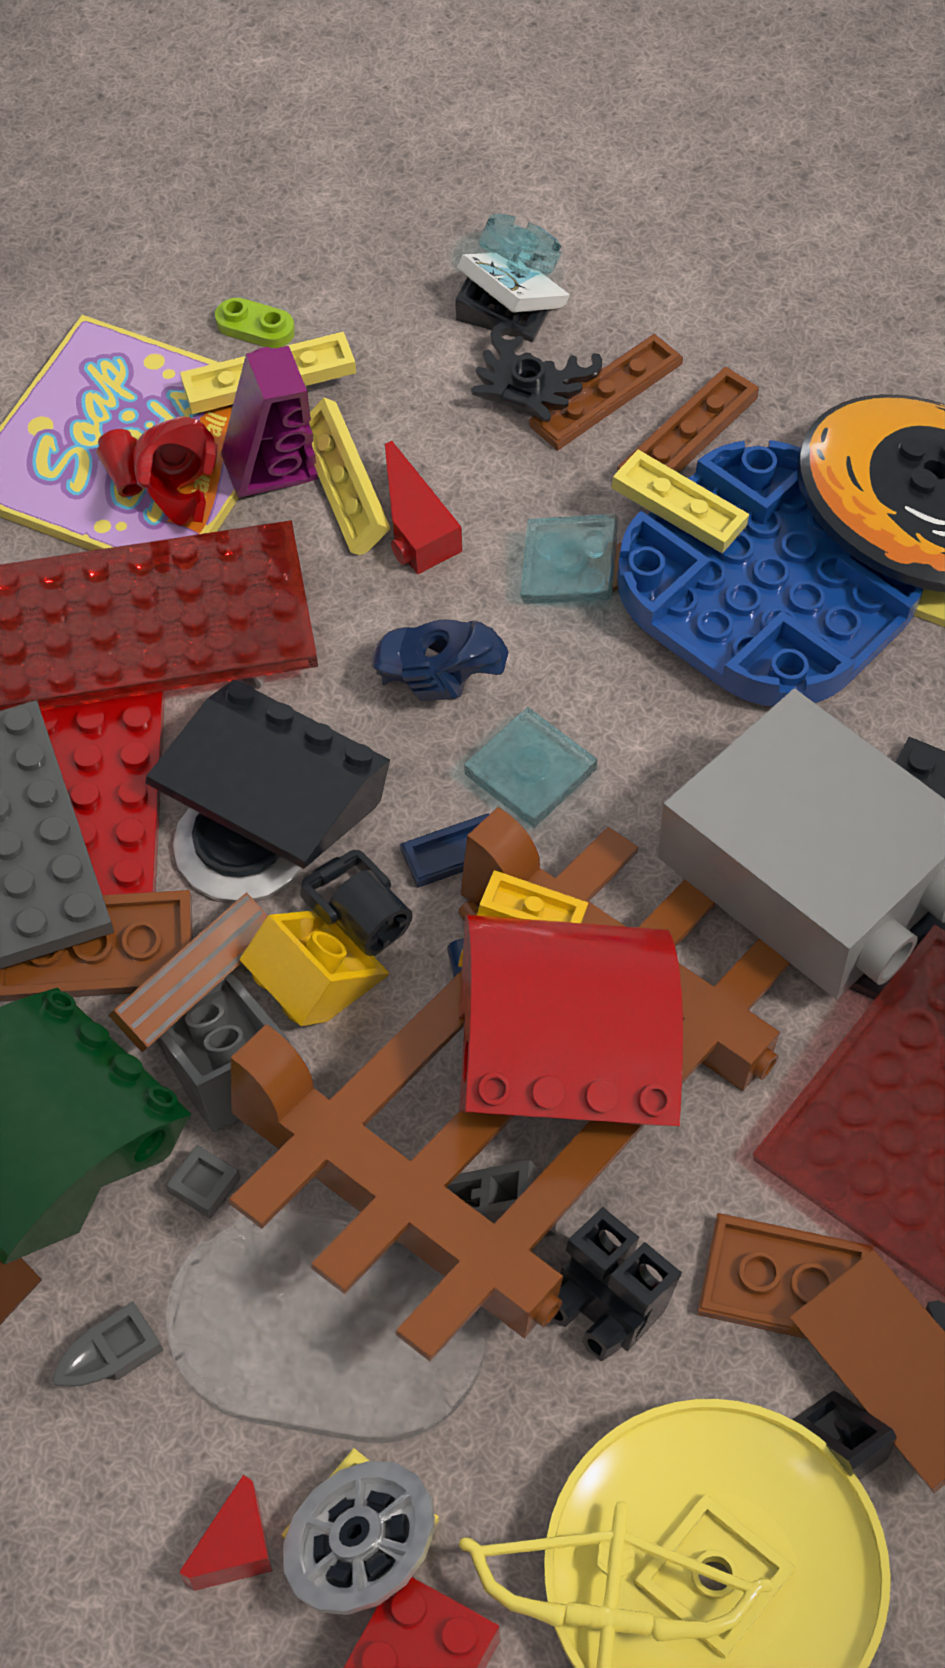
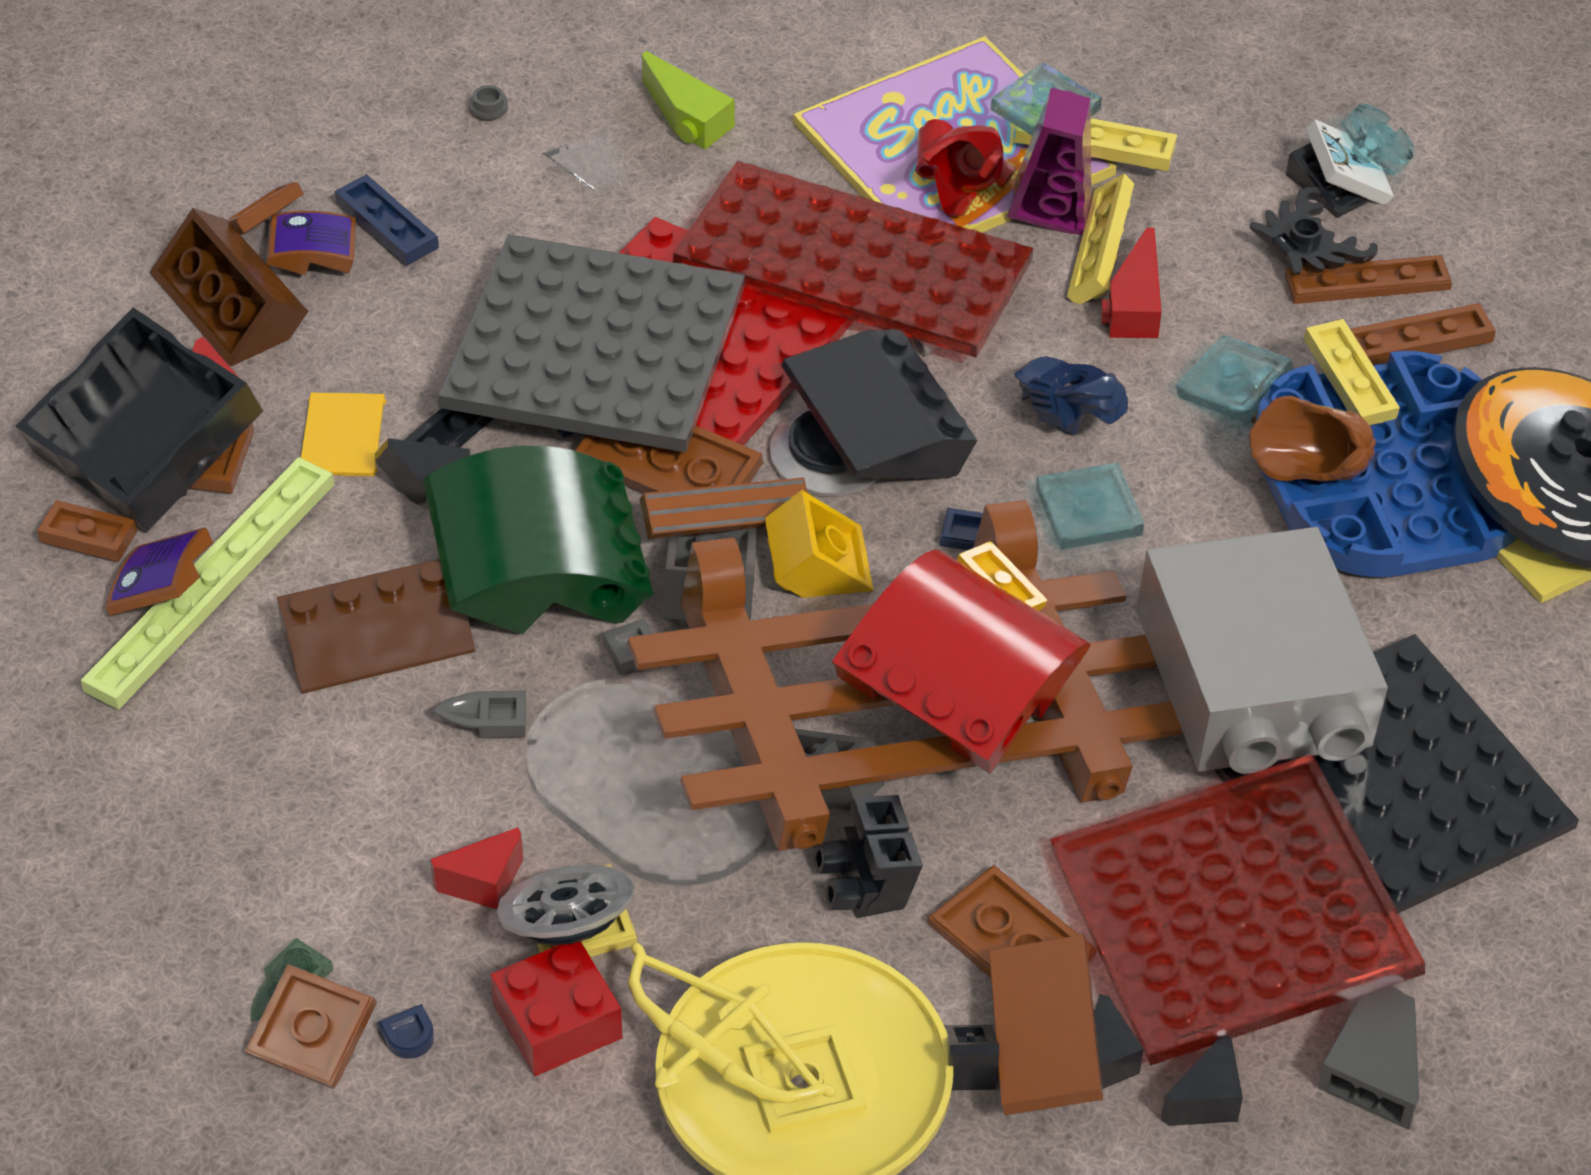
camera: 30 degrees right, 10 degrees down
(202, 361) = (1025, 98): none -> clear light blue plate
(255, 322) = (1120, 102): lime plate -> none
(361, 905) = (883, 527): black piece -> none
(705, 595) = (1310, 441): none -> dark orange hair

